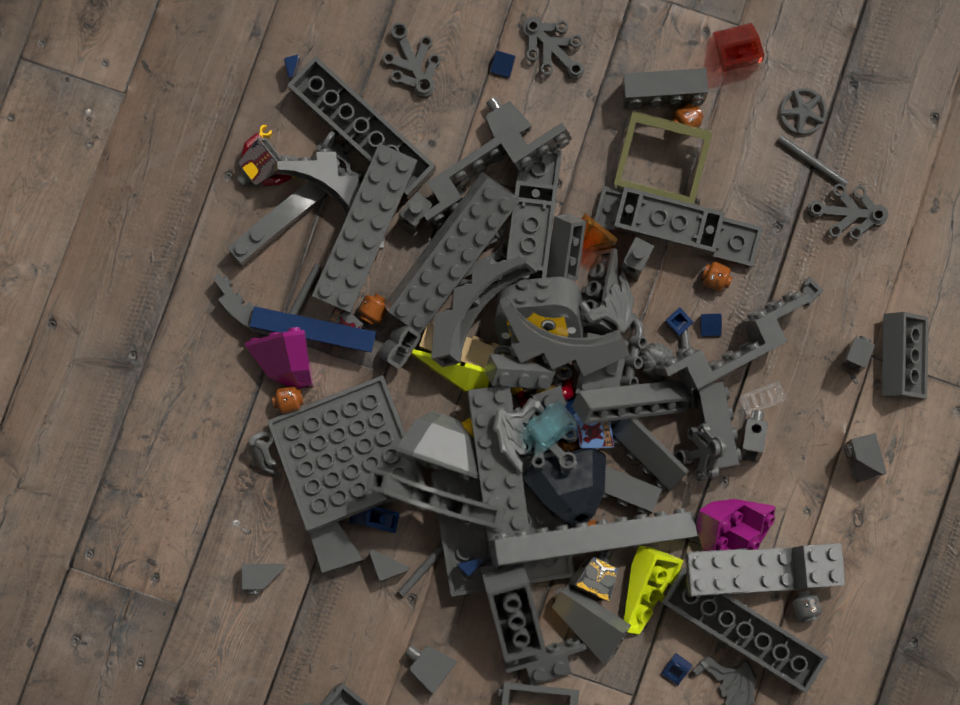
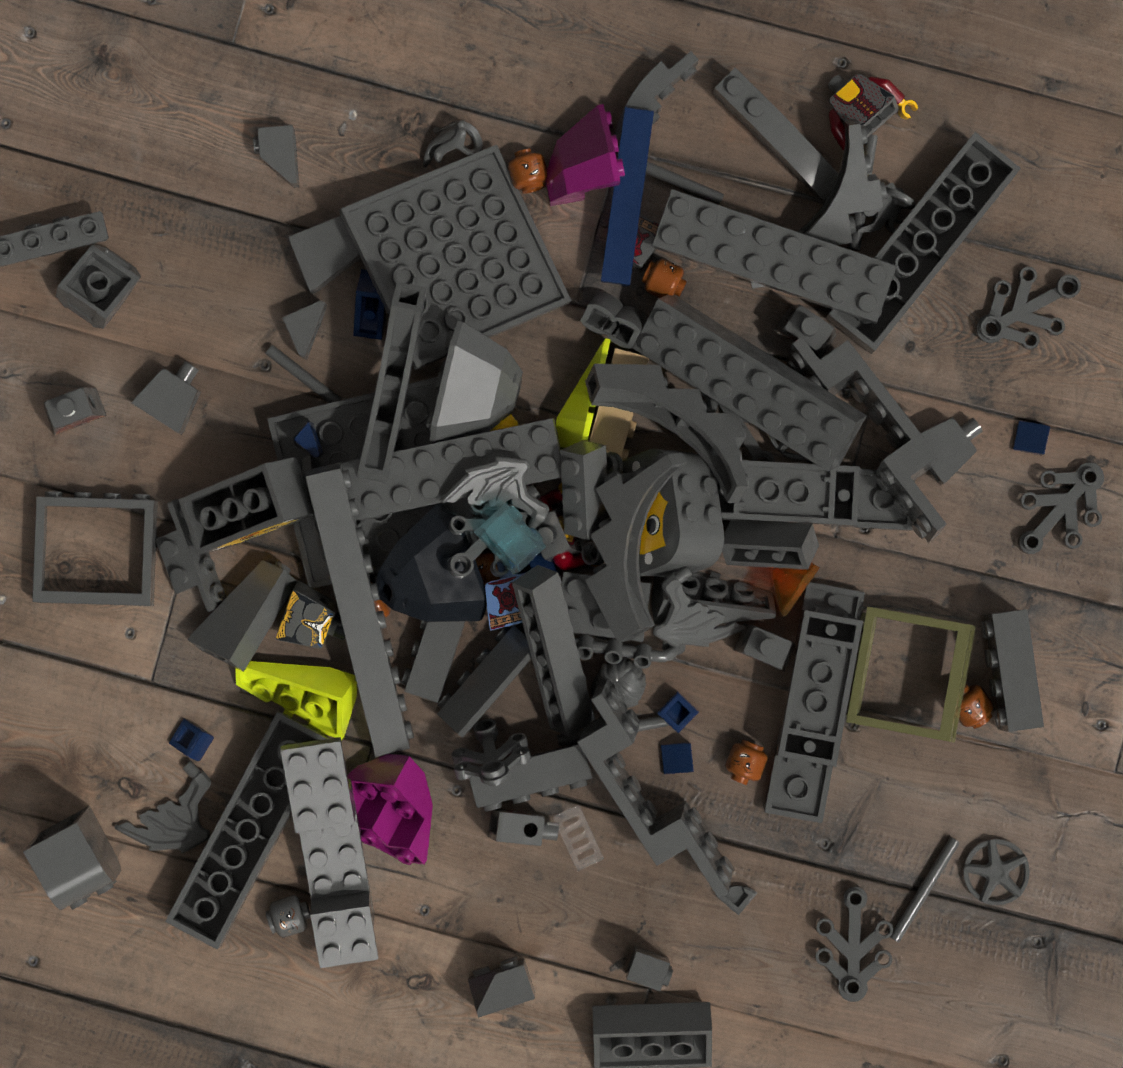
camera: 85 degrees right, 5 degrees up
(292, 65) = (1005, 138): dark blue slope -> none
(738, 47) = (1082, 773): clear red slope -> none

